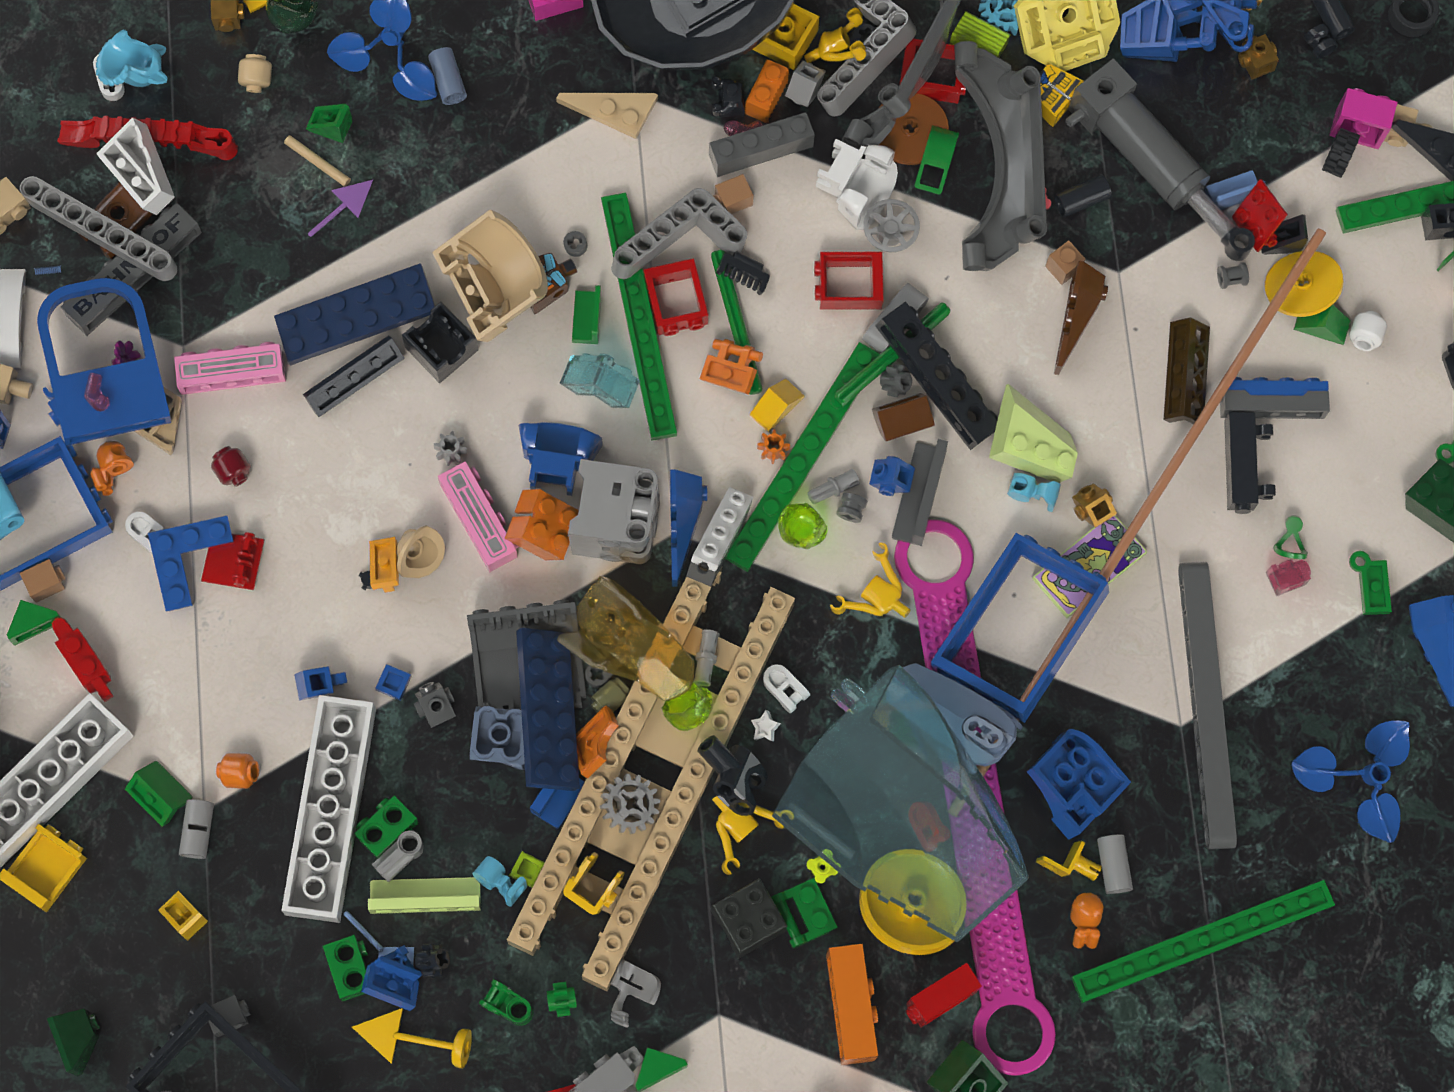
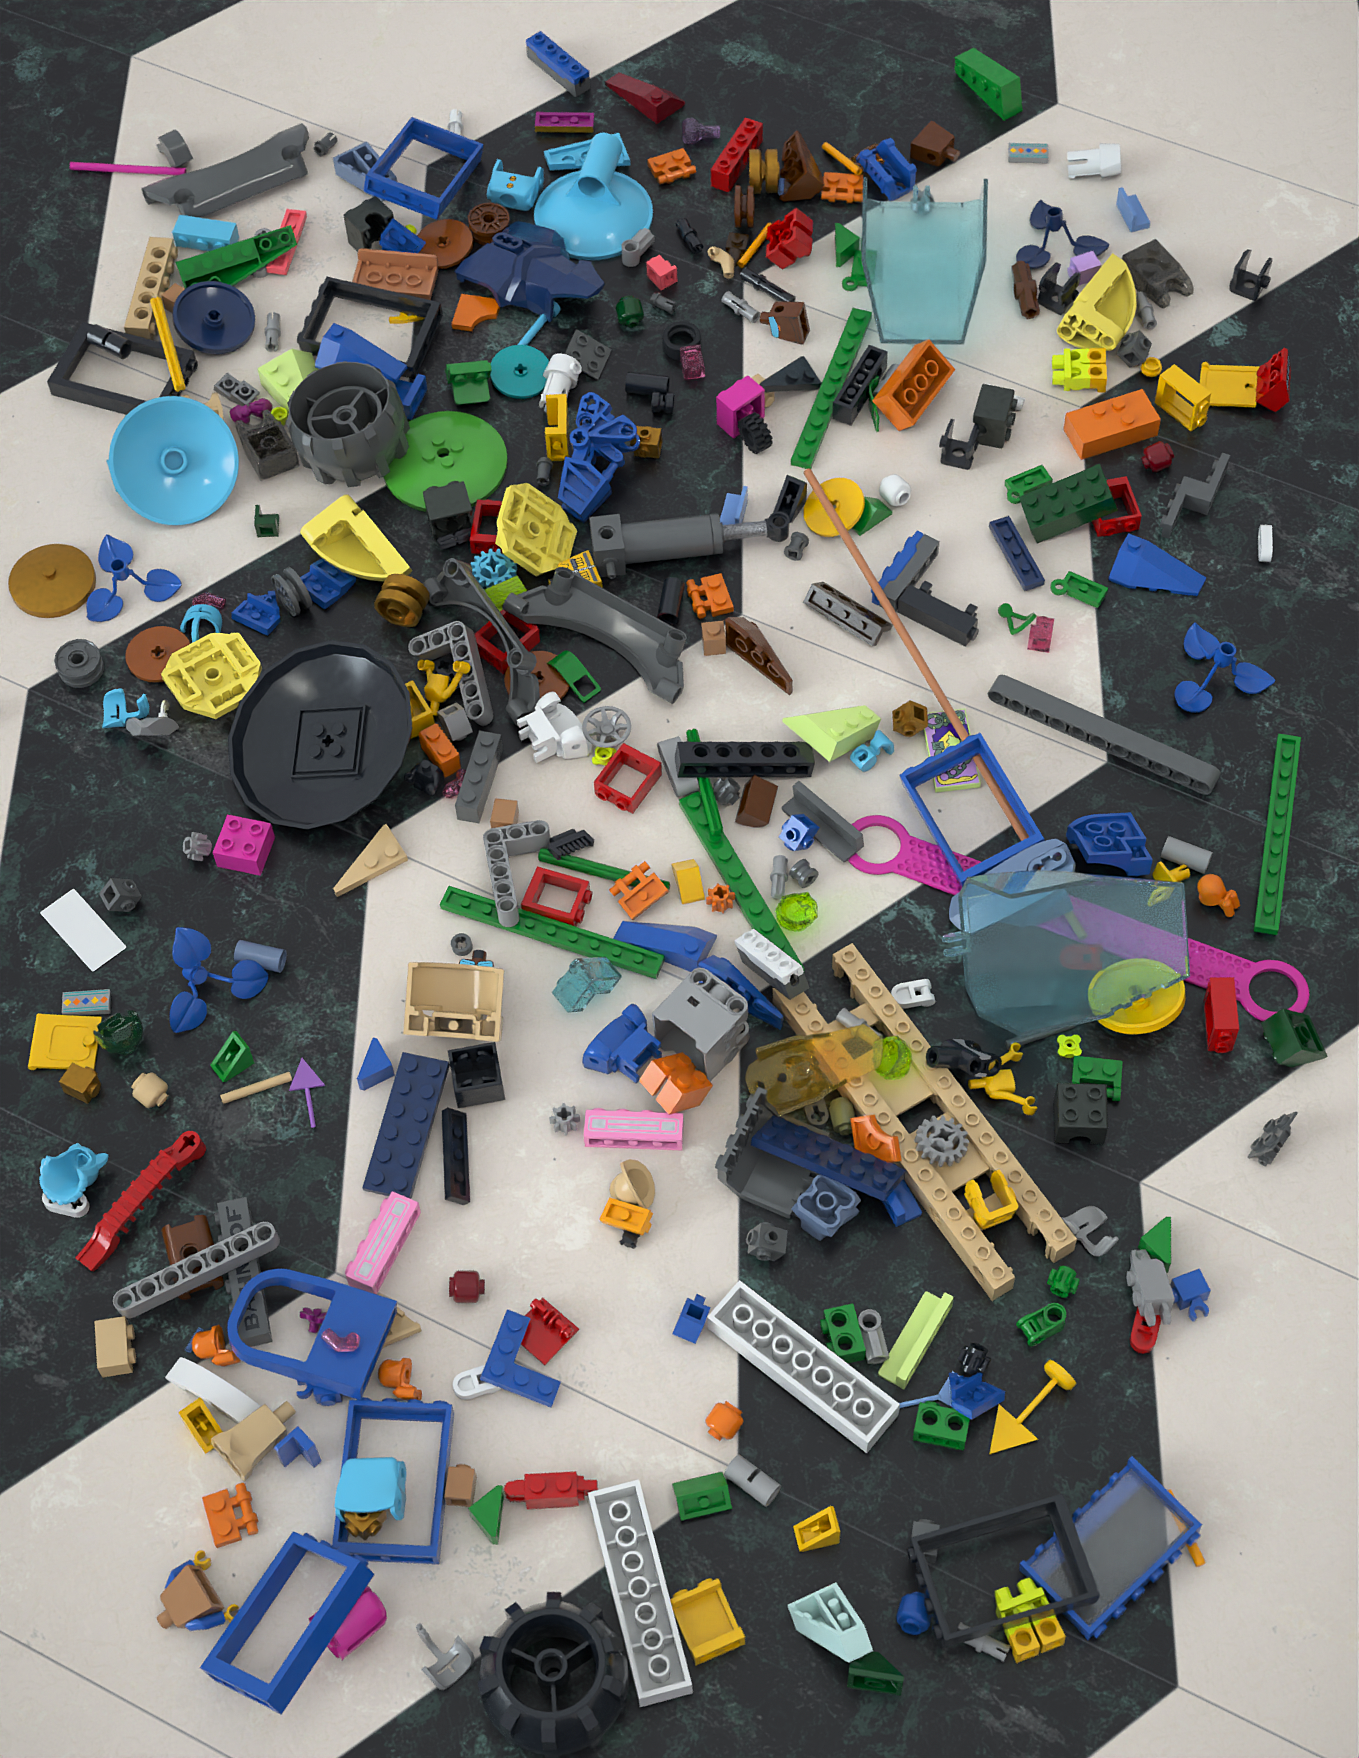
camera: 50 degrees left, 15 degrees down
(43, 283) = (212, 1345): none -> orange piece
(96, 978) = (831, 1622): none -> light aqua wedge
(138, 166) = (169, 1208): white wedge -> none
(148, 1040) = (913, 1614): none -> blue head
(393, 682) = (727, 1265): blue plate -> none
(399, 248) = (375, 1067): none -> blue slope
(491, 874) = (931, 1279): medium azure leg -> none
(527, 867) = (942, 1252): lime tile -> none
(586, 316) = (527, 966): green panel -> none
(700, 434) = (680, 944): none -> blue wedge
(765, 726) = (935, 1024): white piece -> none
(852, 1004) = (1191, 1078): orange brick -> none
(857, 239) = (599, 752): none -> neon yellow plate
(878, 592) = (885, 891): yellow piece -> none
(1123, 234) = (716, 595): none -> orange plate
(1261, 215) = (766, 498): red hinge -> none
(1374, 495) = (1016, 553): none -> dark blue plate
(1392, 38) = (692, 362): none -> clear pink brick

